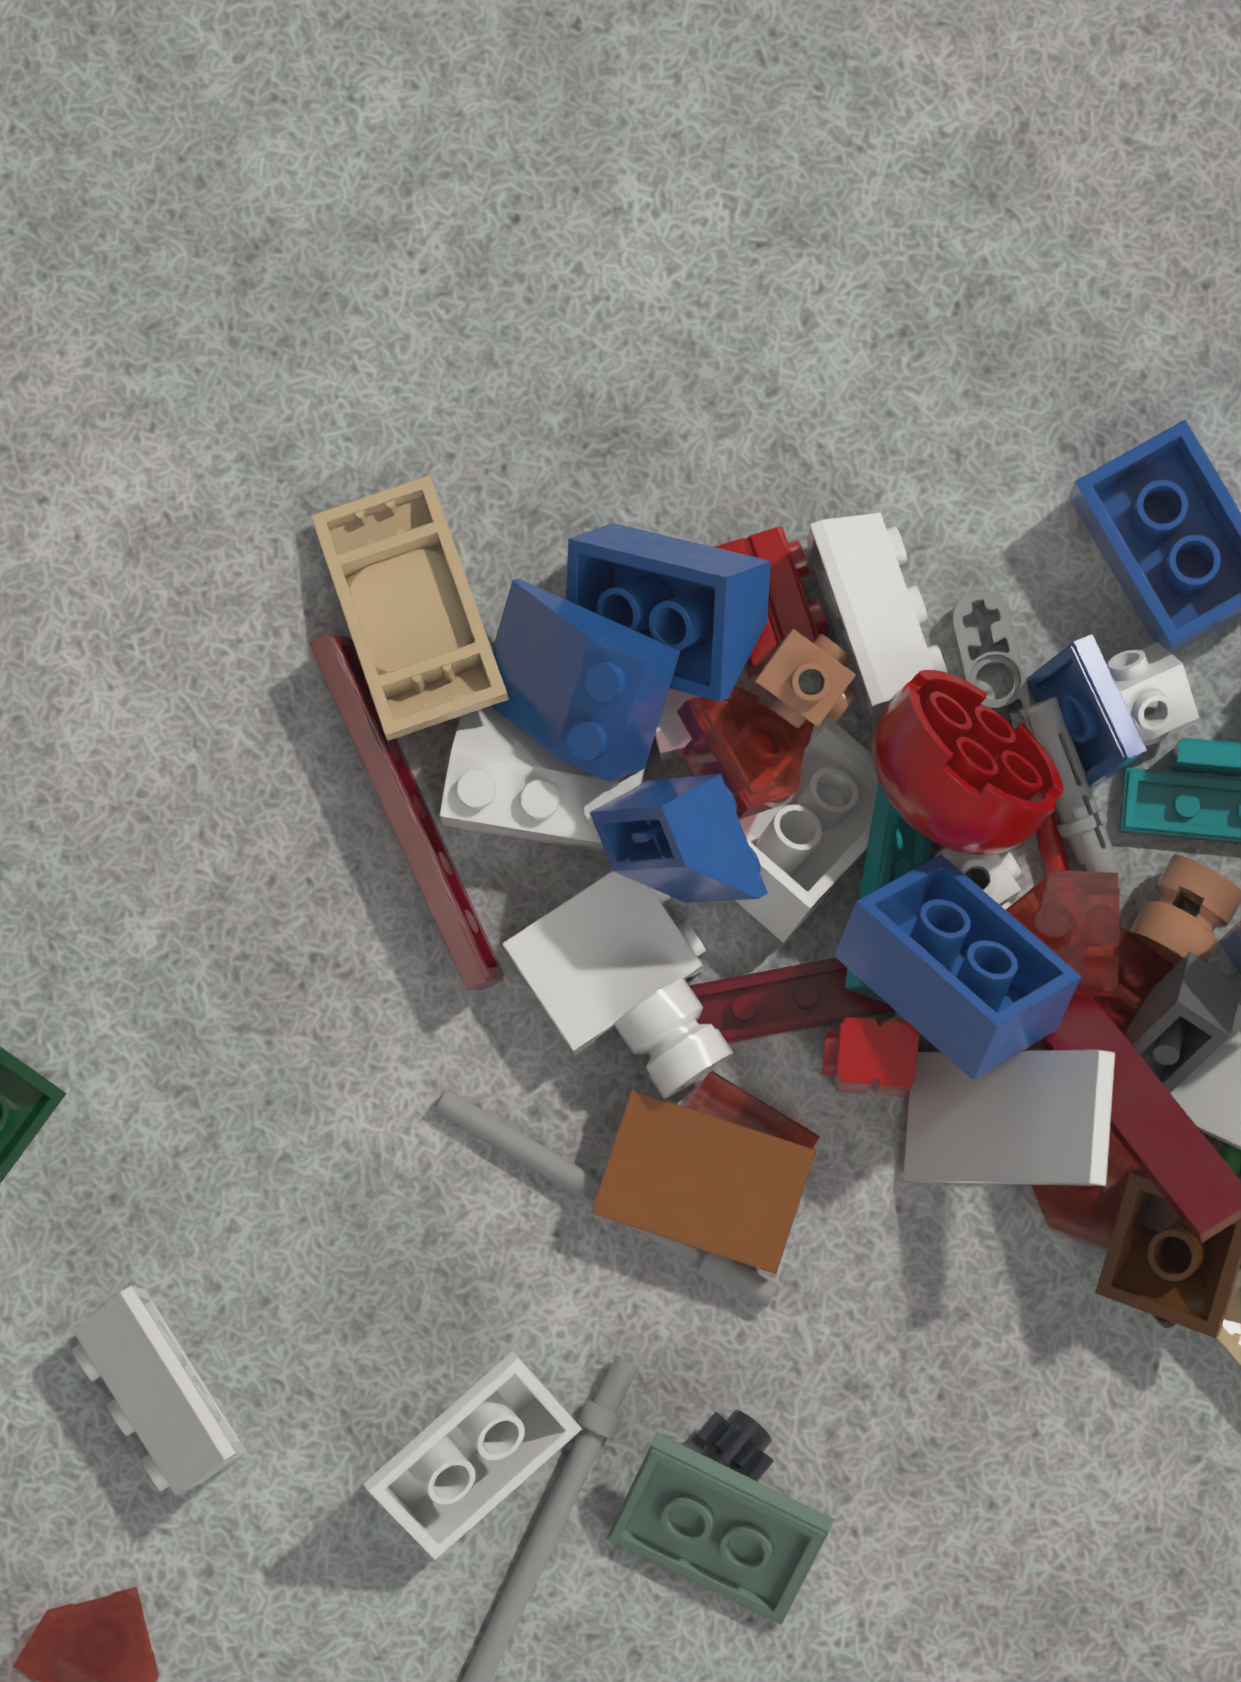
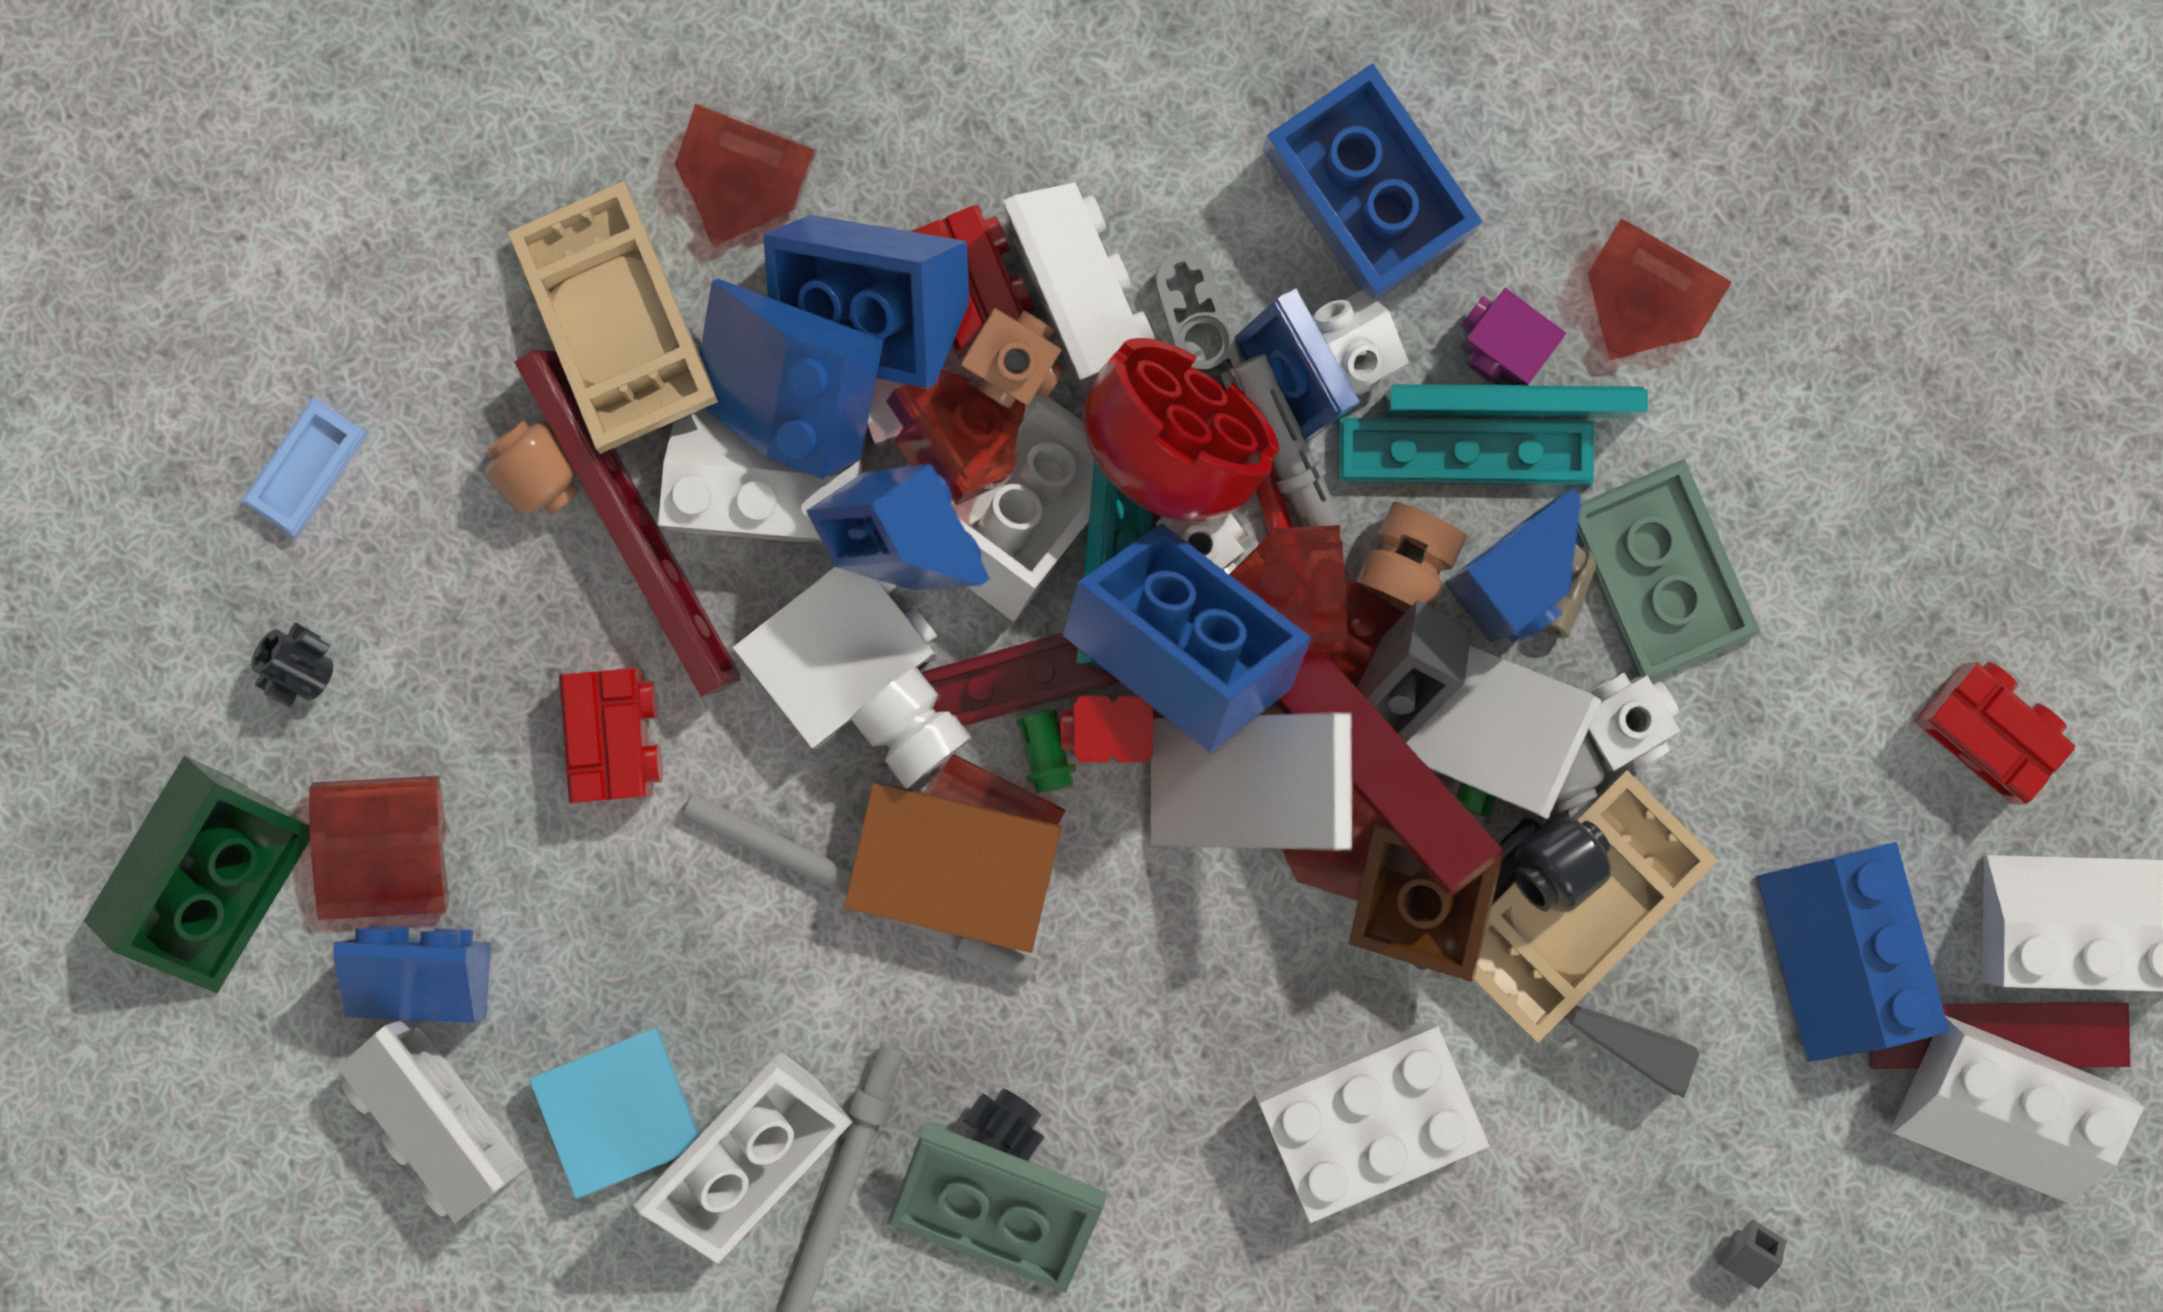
camera: 10 degrees left, 5 degrees up
(60, 925) = (292, 665): none -> black gear
(87, 731) = (305, 467): none -> light blue tile
(127, 1116) = (378, 847): none -> clear red slope
(155, 1246) = (413, 978): none -> blue slope
(315, 751) = (531, 469): none -> nougat head
(342, 1401) = (615, 1112): none -> medium azure slope
(368, 1022) = (608, 735): none -> red brick
(547, 476) = (740, 172): none -> clear red plate
(803, 1077) = (1044, 752): none -> green pin
(1104, 1474) = (1372, 1121): none -> white brick

